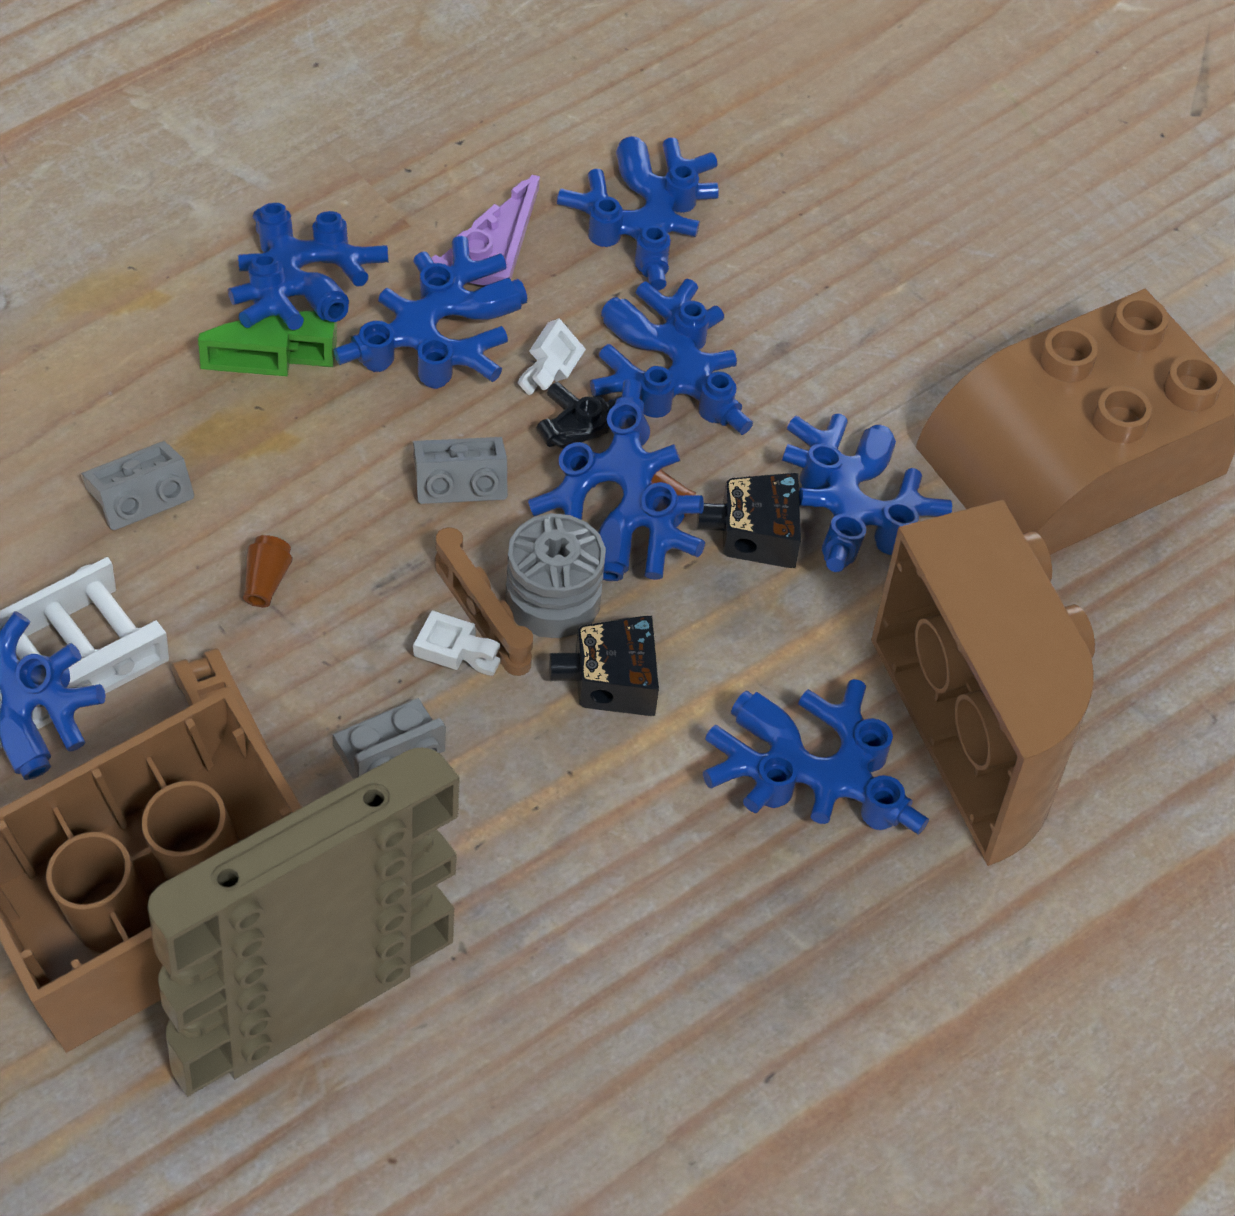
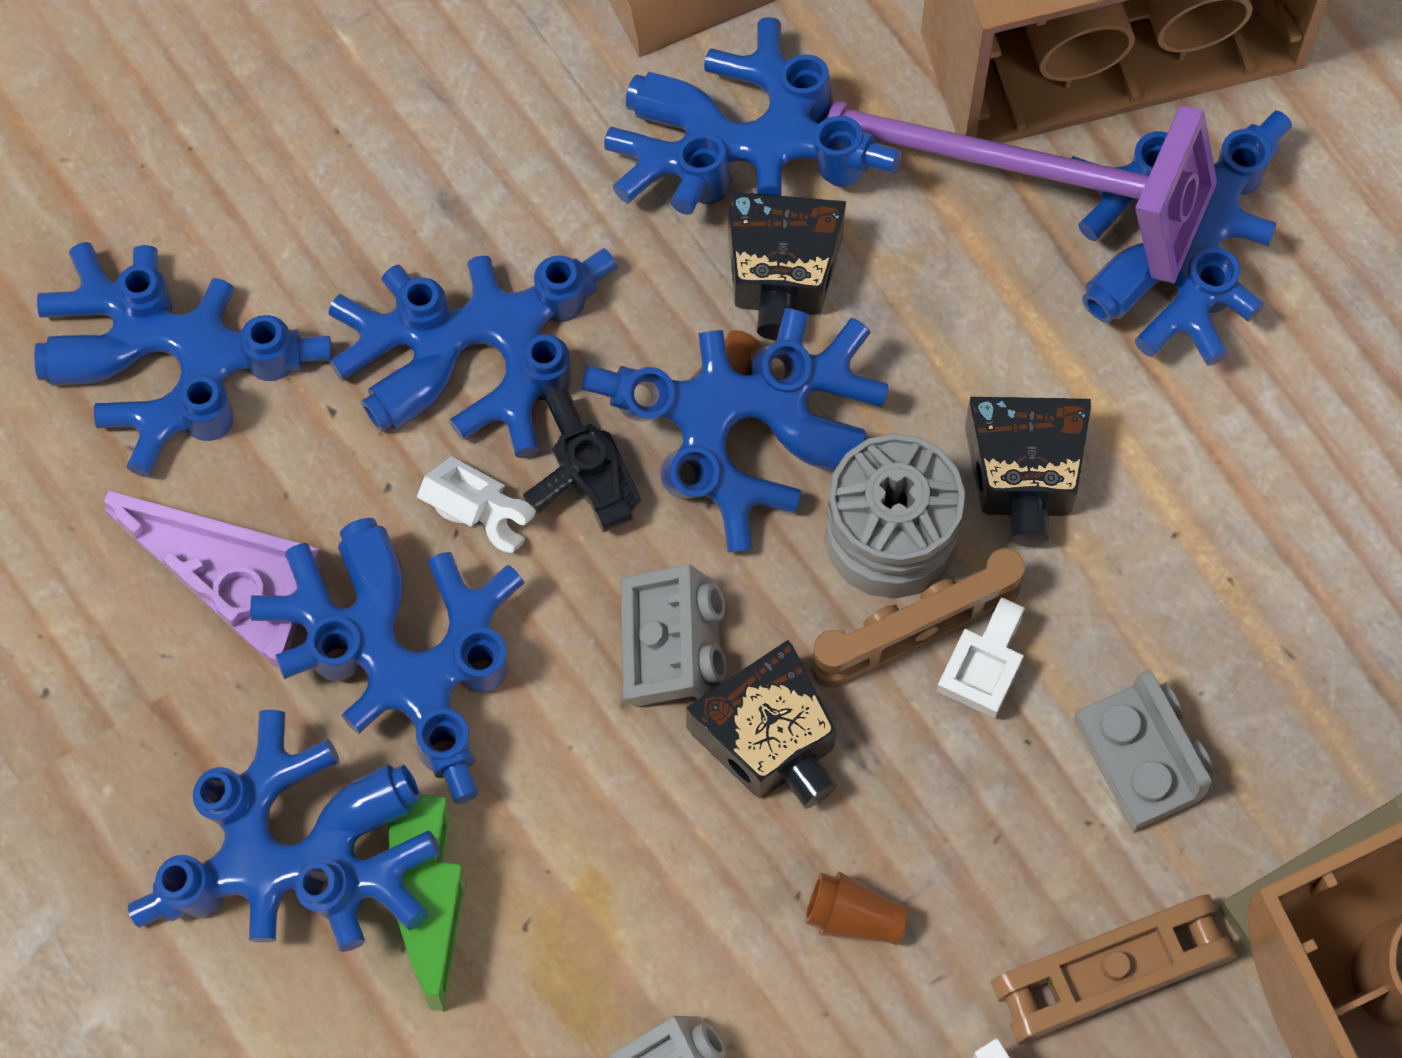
camera: 80 degrees left, 15 degrees up
(395, 517) = (768, 727): none -> torso
(823, 709) = (1169, 198): none -> medium lavender tile

